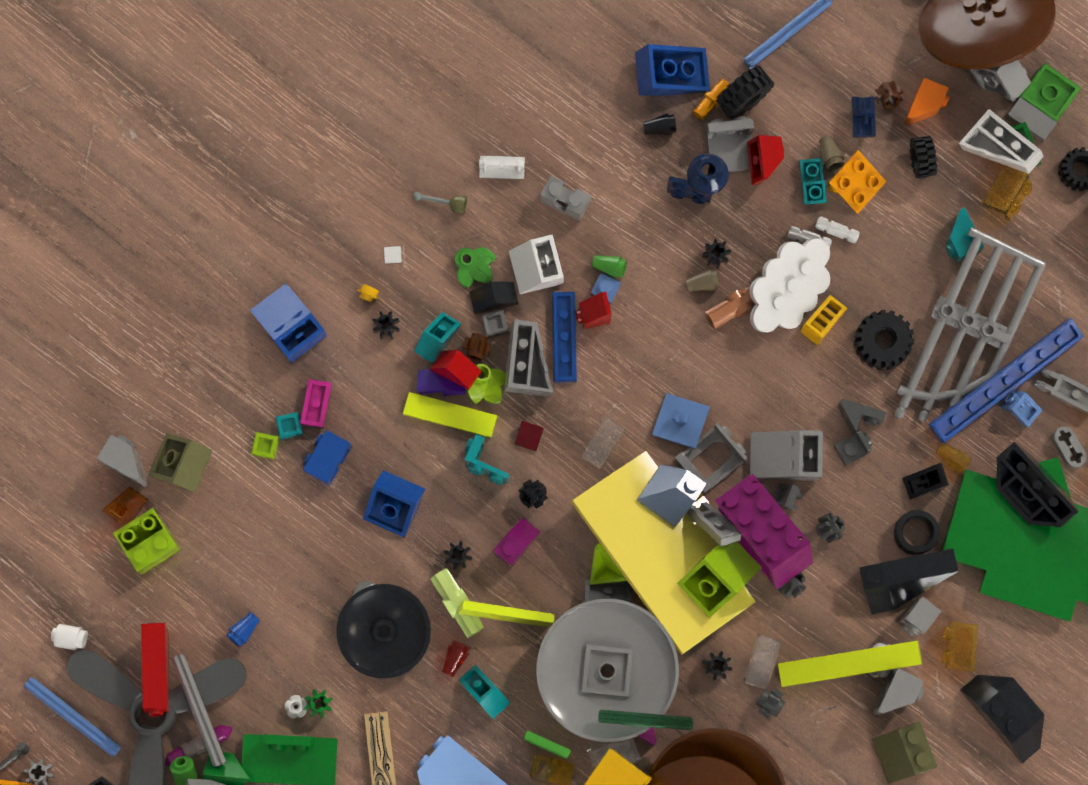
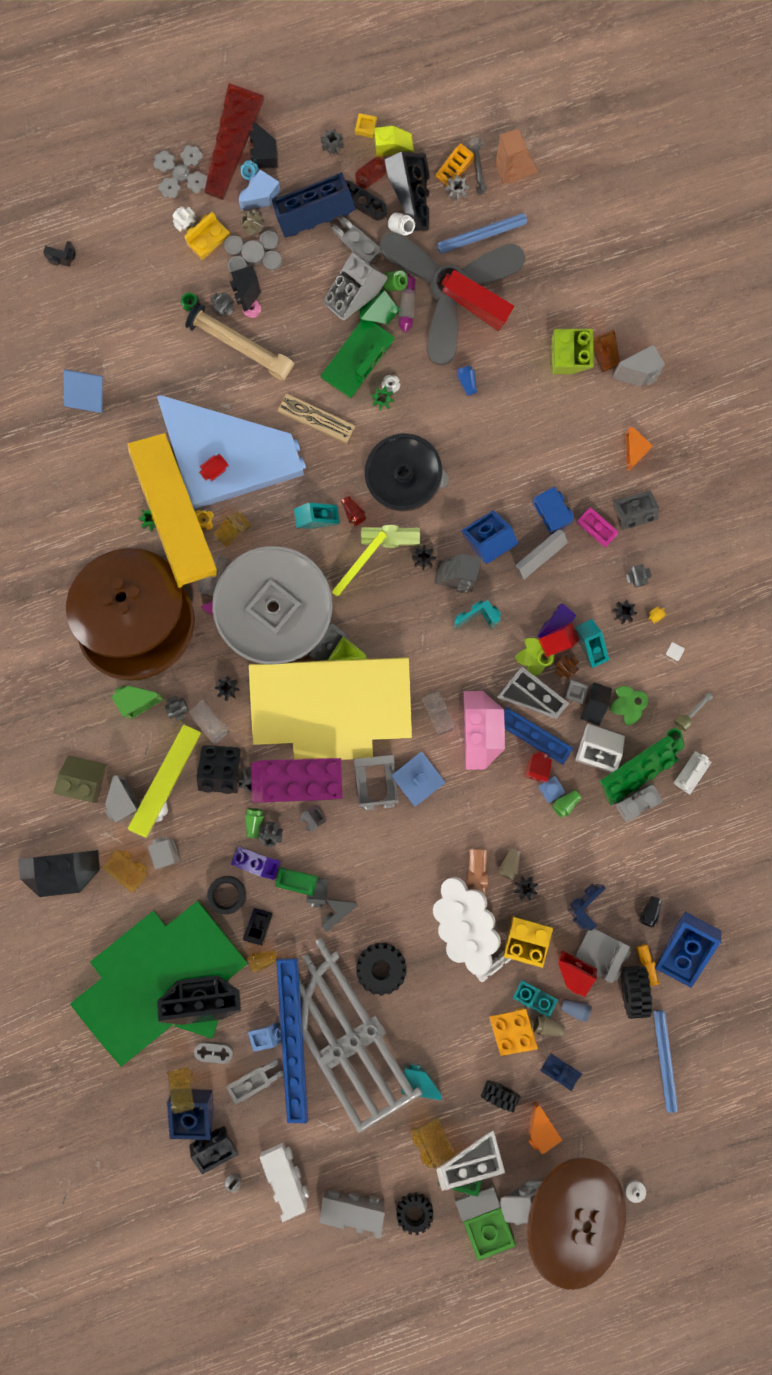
camera: 120 degrees right, 5 degrees up
(69, 637) = (538, 261): white brick -> none
(180, 462) = (614, 407): olive slope -> none
(198, 710) = (430, 313): light grey axle -> none
(209, 415) = (636, 447): none -> orange slope
(265, 445) = (589, 474): lime tile -> none
(273, 376) = (636, 510): none -> dark grey bracket
(289, 323) = (669, 543): slope -> none
(289, 425) = (593, 499): teal tile -> none
(341, 333) = (638, 575): none -> dark grey gear
(379, 441) = (541, 554): none -> light grey tile
(450, 415) = (528, 617): neon yellow tile -> none
(452, 506) = (459, 572): none -> dark grey wedge
(516, 542) = (406, 604): magenta slope -> none
(529, 213) = (643, 767): none -> green hinge
(529, 436) = (477, 663): dark red slope -> none
(533, 494) = (433, 637): black gear -> none
(547, 745) = (250, 533): bright green tile -> none
(591, 389) = (482, 730): none -> bright pink wedge
(645, 719) = (219, 607): clear green axle -> none
(671, 493) = (368, 733): sand blue slope -> none
(707, 184) = (581, 910): dark blue piece -> none
(714, 524) = (324, 748): light grey hinge -> none
(719, 576) = (286, 728): lime slope -> none
(765, 220) = (527, 941): none -> yellow slope
(787, 455) = (342, 837): light grey slope -> none
(791, 748) = (134, 701): none -> bright green slope
(796, 137) = (576, 1009): none -> sand blue cone
(801, 621) = (218, 769): none -> black bracket
(815, 331) = (419, 919): yellow slope -> none
(828, 553) = (253, 821): none -> bright green cone
(837, 229) = (486, 992): white axle -> none
(857, 473) = (296, 881): none -> green tile
(868, 525) = (255, 863): none -> dark purple bracket
(889, 95) = (565, 1104): reddish brown gear -> none
(900, 580) = (199, 859): black wedge -> none

